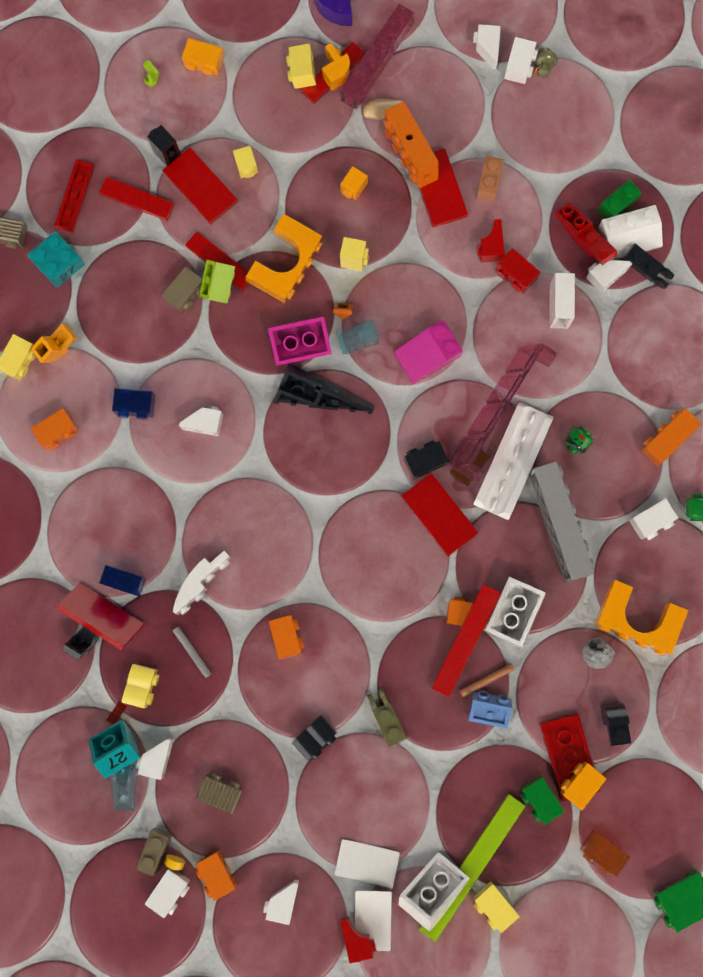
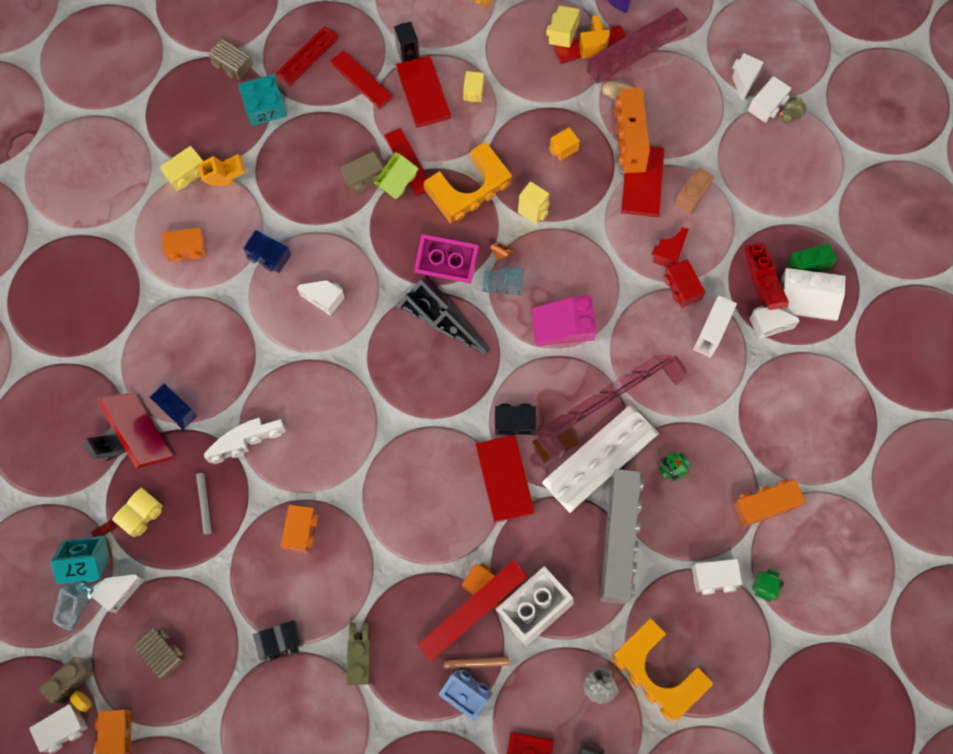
camera: 20 degrees right, 10 degrees down
(648, 266) = (815, 331): black hinge -> none

